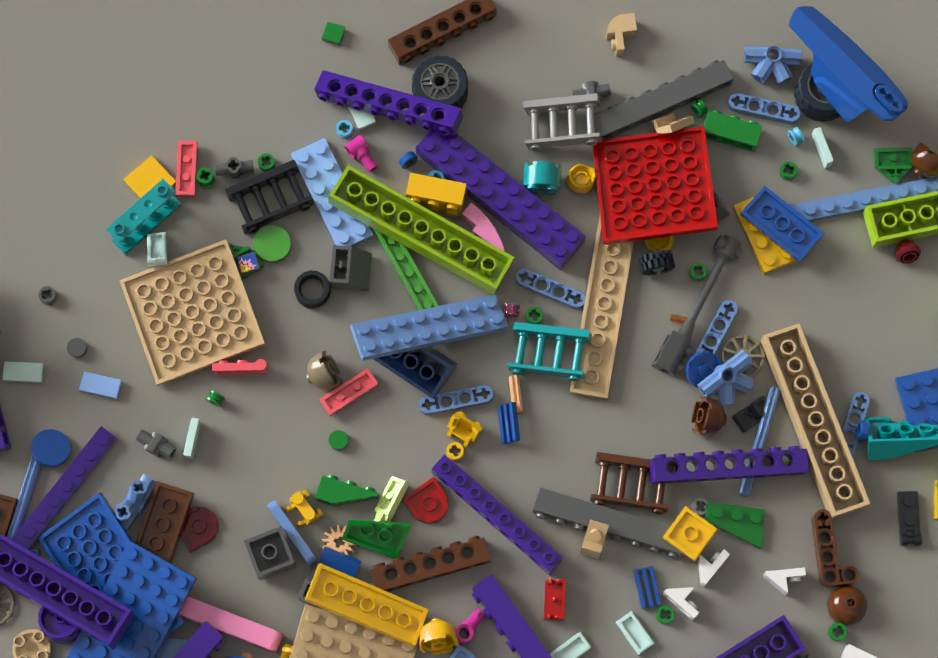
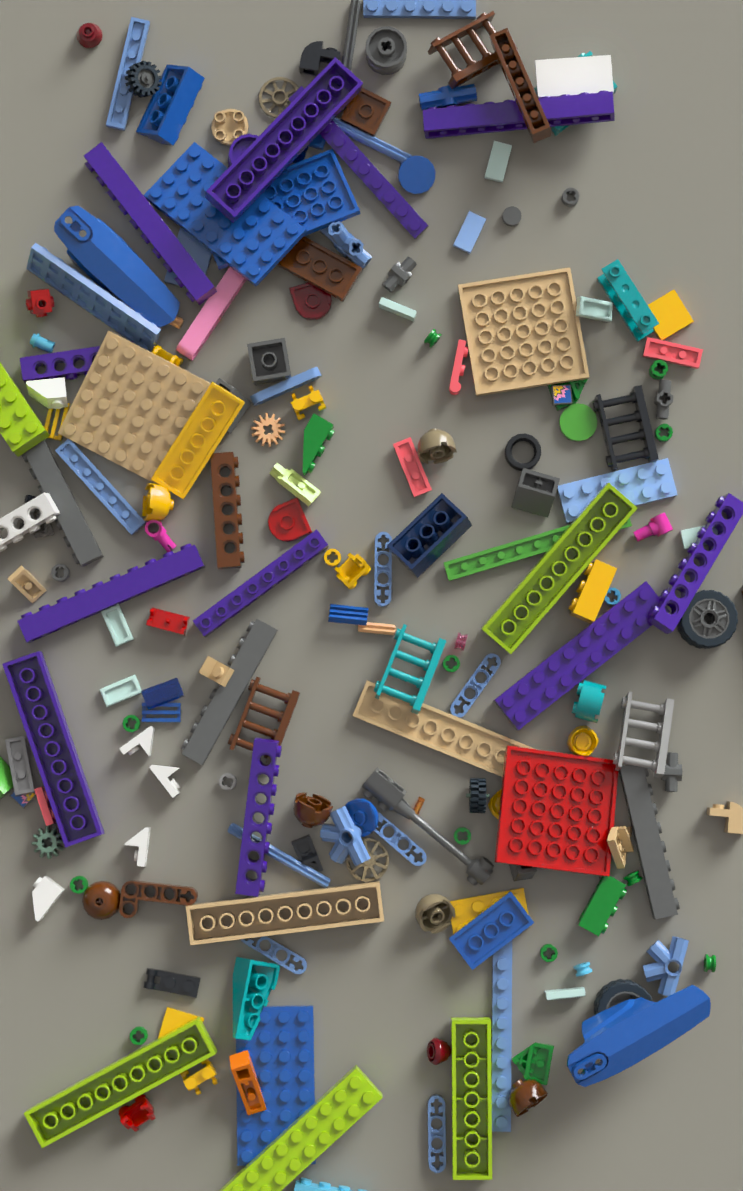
camera: 100 degrees right, 10 degrees up
(338, 440) = (367, 448): green tile -> none
(340, 561) = (247, 425): blue tile -> none
(348, 125) = (679, 512): medium azure bush -> none
(377, 536) = (264, 465): green wing -> none
(408, 160) = (637, 572): blue tile -> none
(428, 327) = (456, 555): medium blue plate -> none
(482, 226) = (549, 632): bright pink slope -> none
(628, 589) = (162, 693): none -> clear blue tile
(690, 533) = (200, 763): yellow tile -> none
(739, 521) = (205, 814): green wing -> none
(760, 25) = (709, 963): none -> green bush
(763, 111) = (617, 943): medium blue beam -> none
(778, 280) = (434, 913): none -> dark tan cylinder
(862, 430) = (265, 957): blue tile -> none

